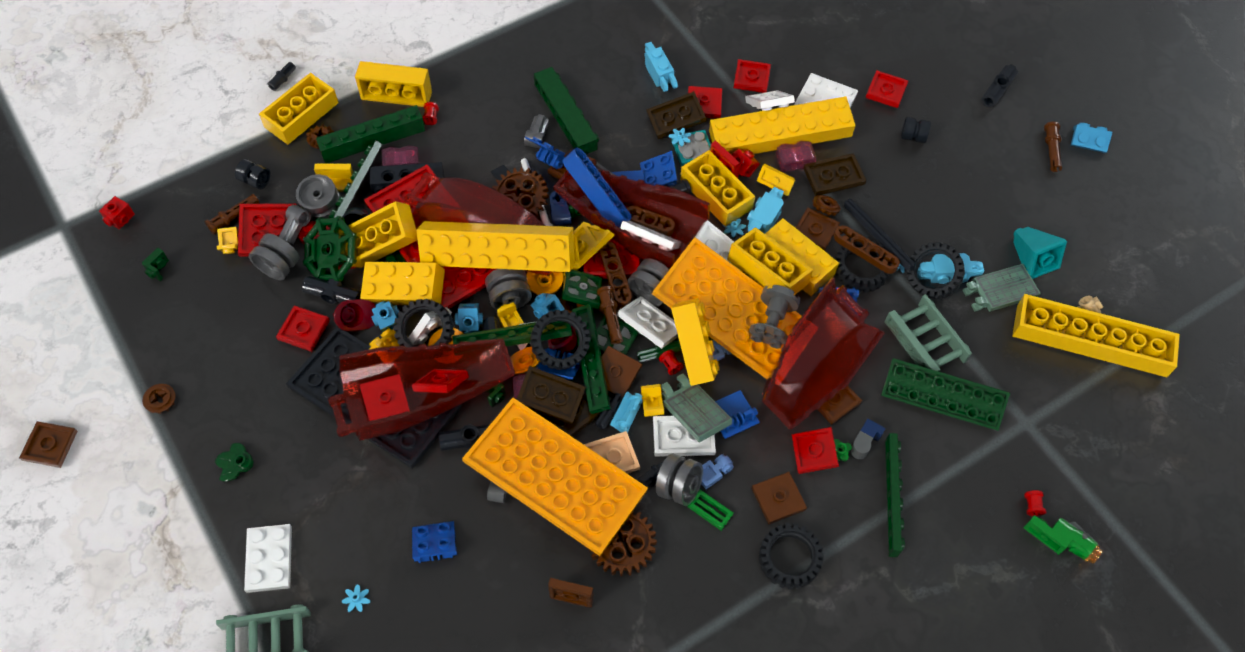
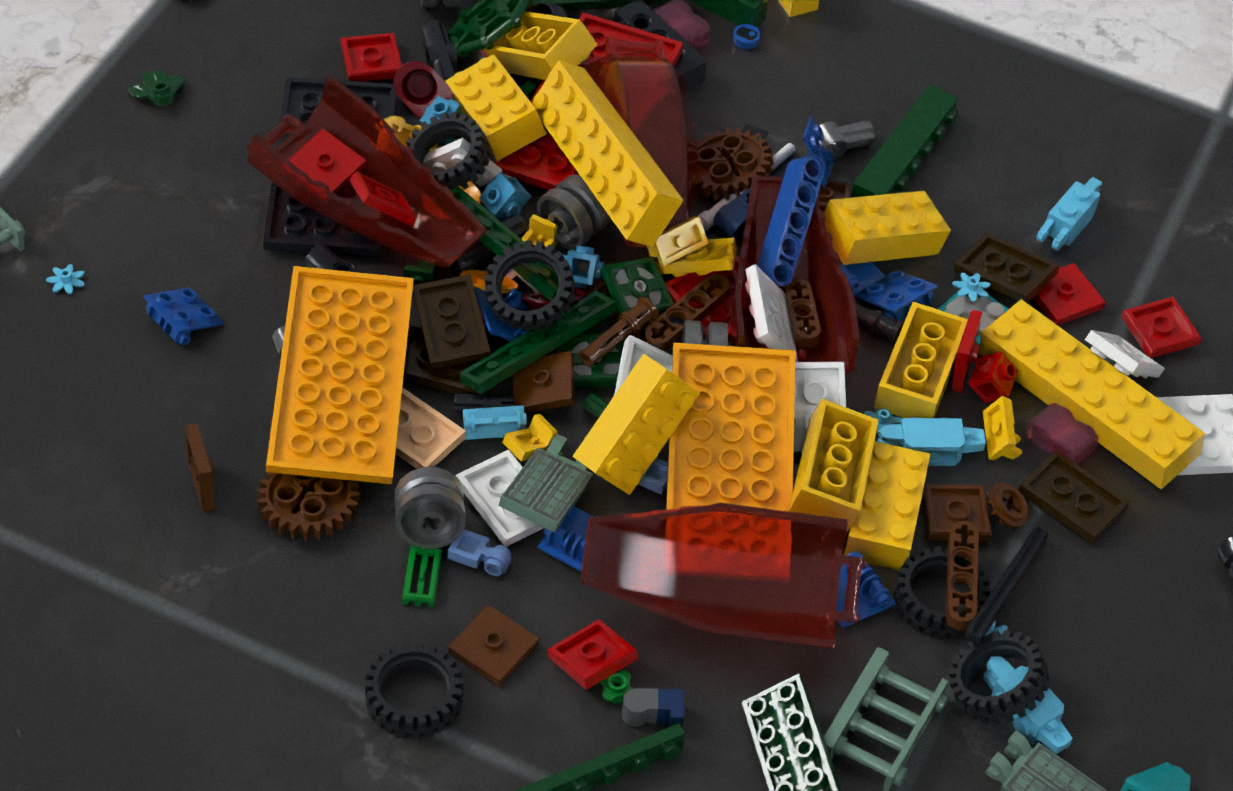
camera: 55 degrees right, 10 degrees down
(268, 558) = (63, 177): white plate -> none
(429, 134) = (746, 36): none -> blue tile
(430, 113) = (785, 17): red bush -> none
(536, 286) = (613, 249): light orange dish -> none
(619, 147) = (885, 227): none -> yellow brick
(778, 302) = (761, 493): dark grey piece -> none
(839, 405) = (690, 651): reddish brown plate -> none

